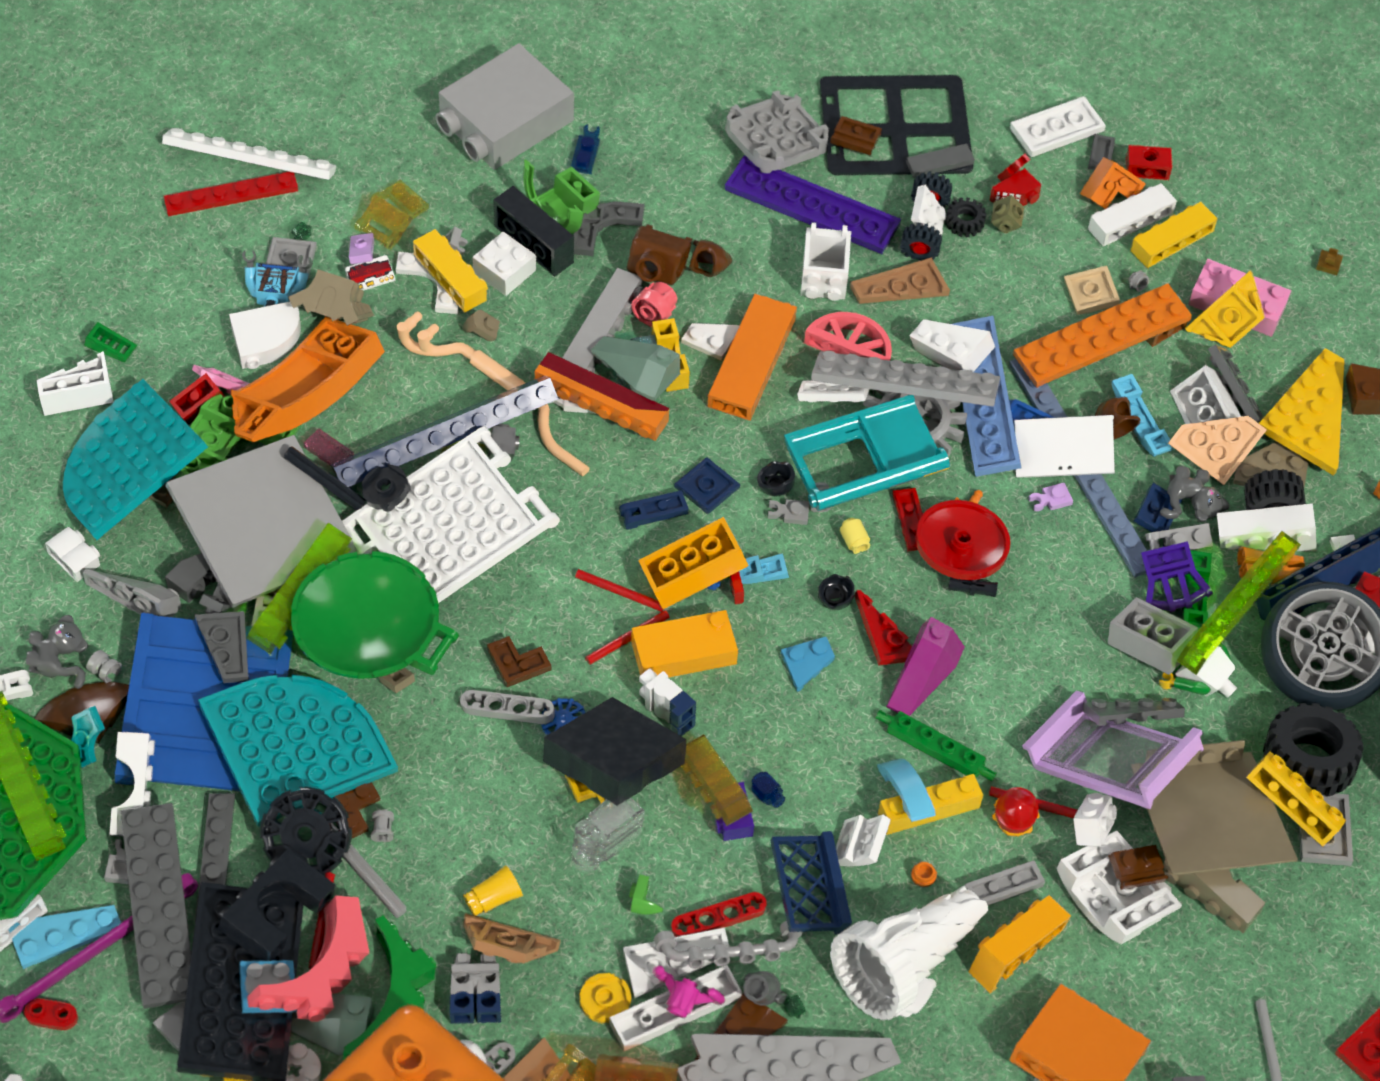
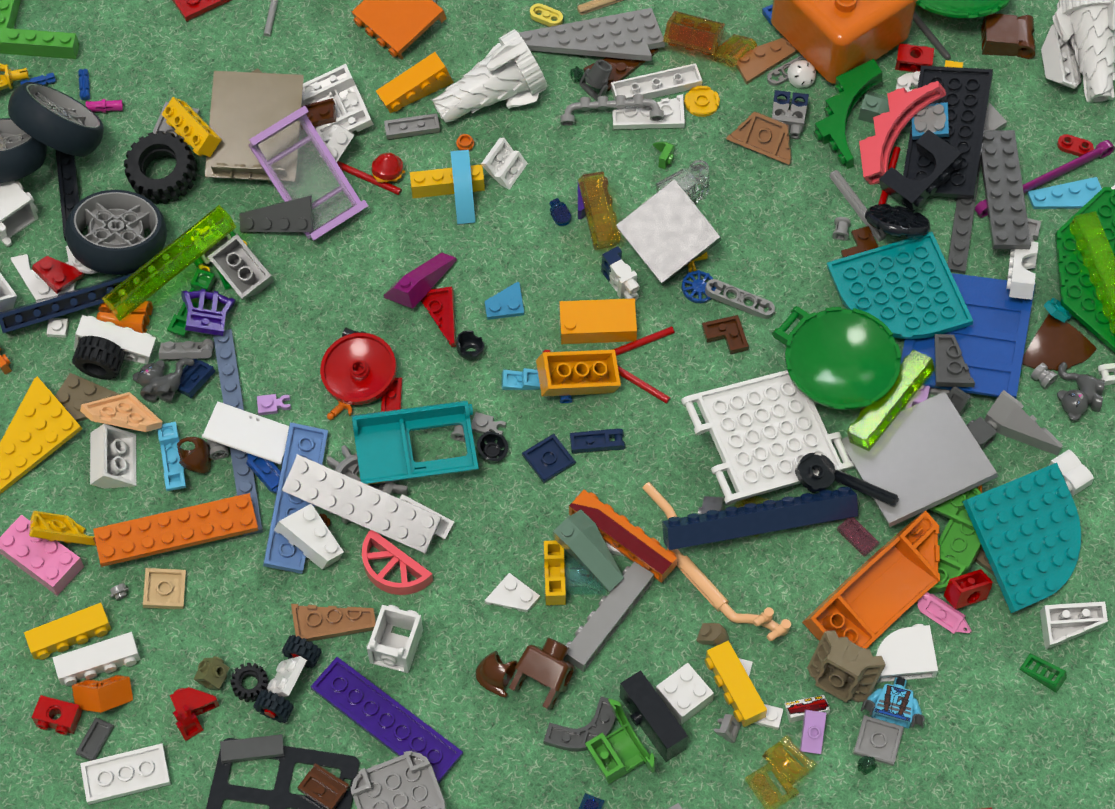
camera: 165 degrees left, 5 degrees up
(493, 892) = (768, 171): yellow plant -> none
(654, 302) = (557, 624): coral piece -> none
(684, 994) = (650, 77): dark pink piece -> none
(716, 911) = (614, 140): red beam -> none
(752, 357) = (482, 566): orange brick -> none
(831, 885) = (532, 137): dark blue fence -> none
(855, 535) = (441, 391): light yellow brick -> none
(936, 744) = (428, 227): green plate -> none
(1221, 359) = (80, 472): dark grey wing -> none

